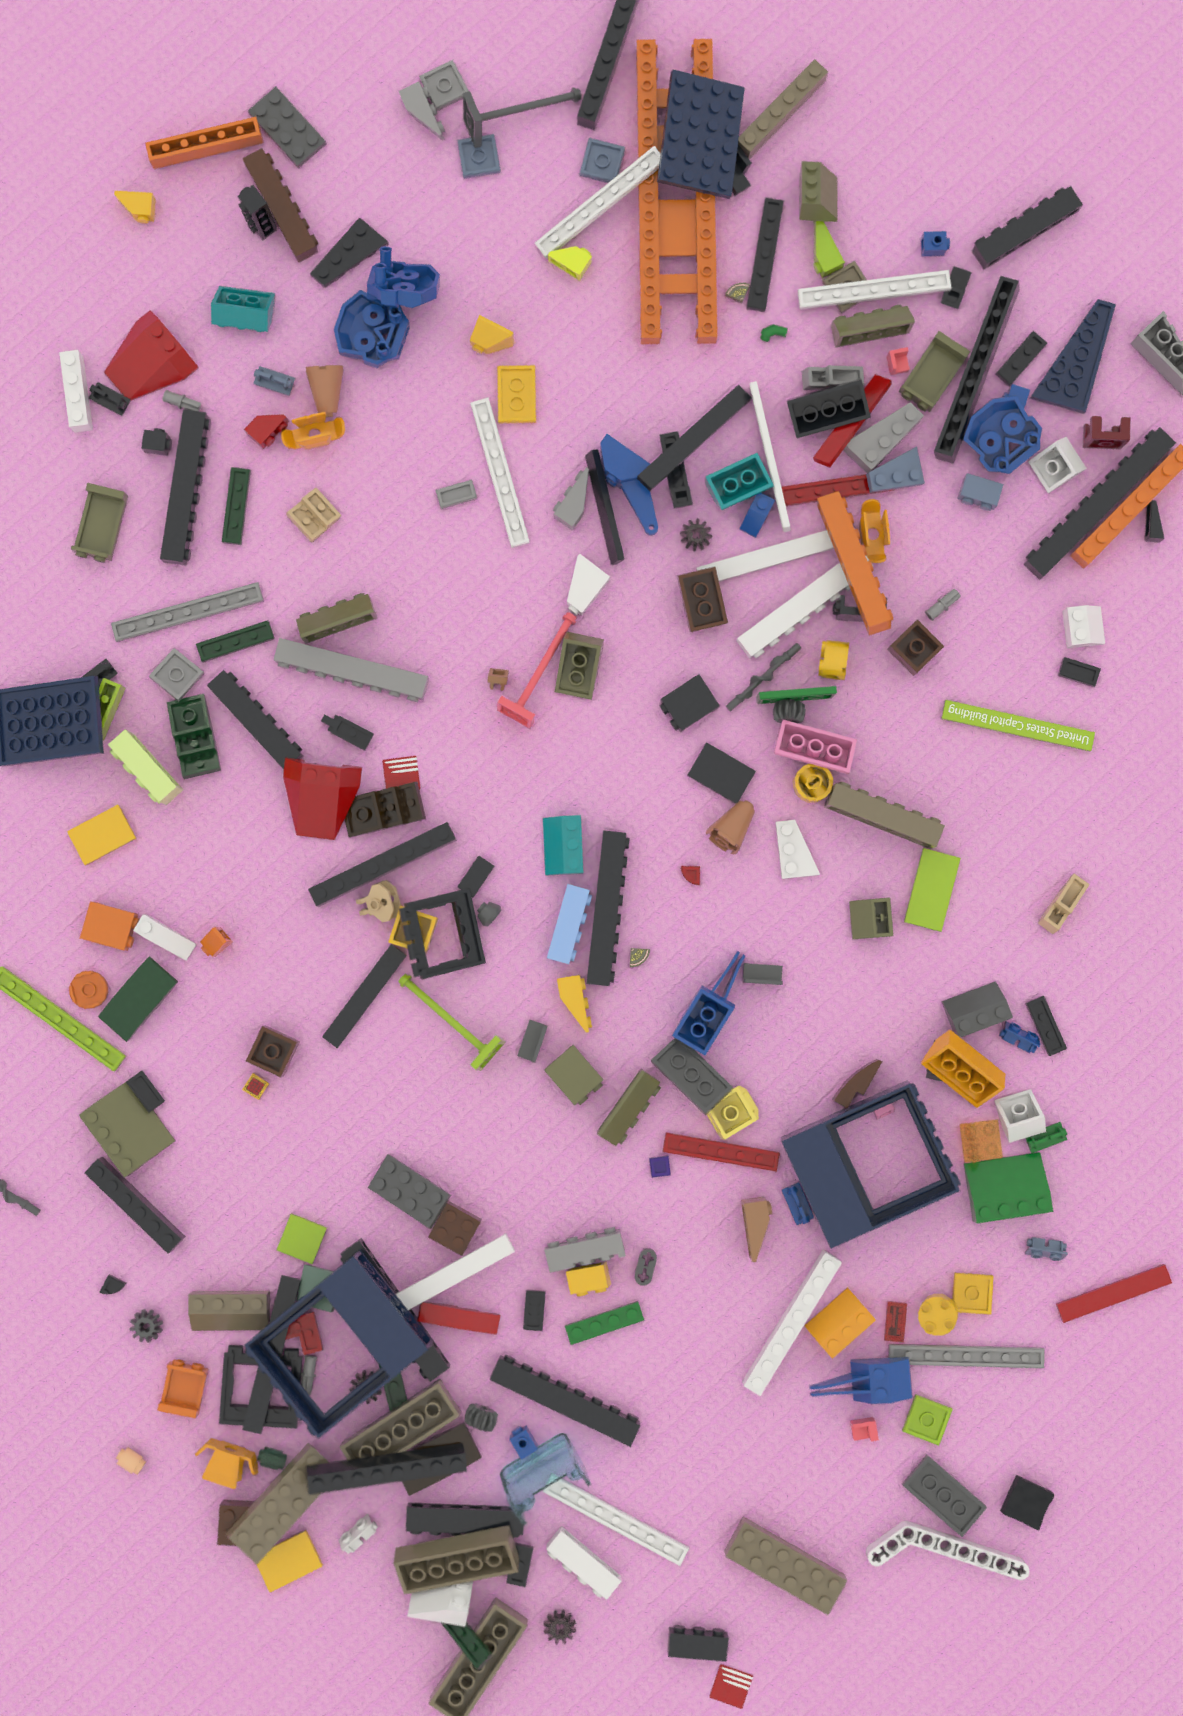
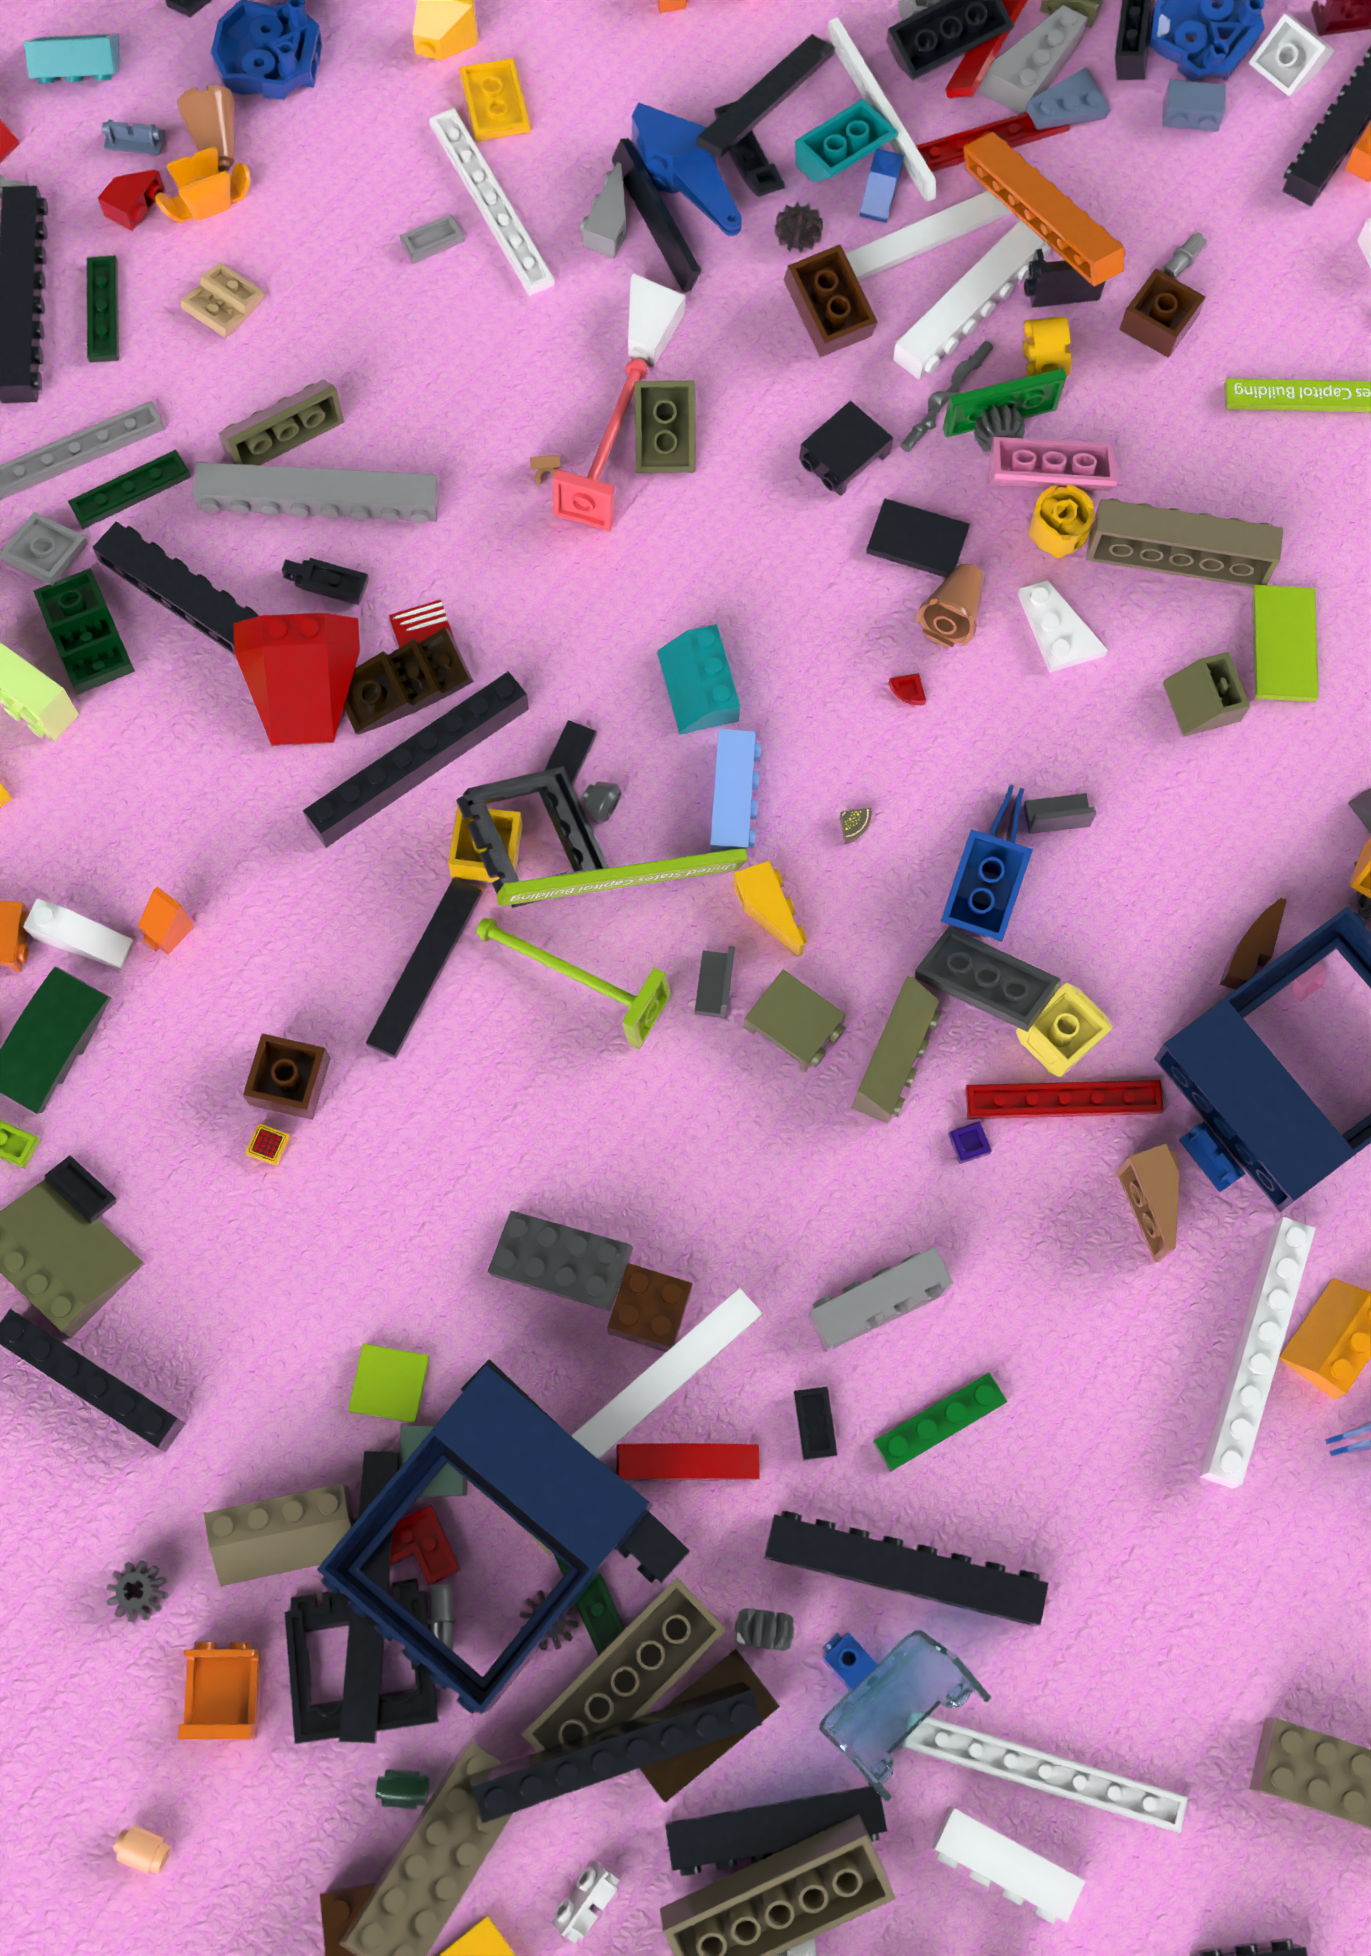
camera: 10 degrees left, 15 degrees down
(112, 1285) = (66, 1534): black tile -> none
(226, 1465) = (321, 1814): light orange piece -> none
(380, 902) = (424, 812): tan hinge -> none
(489, 972) = (621, 877): none -> lime tile
(525, 1555) = (896, 1915): black plate -> none
(588, 1278) = (896, 1347): yellow brick -> none
(606, 908) = (788, 761): black brick -> none
(650, 1268) = (979, 1311): dark grey beam -> none
(870, 519) = (1044, 158): light orange piece -> none

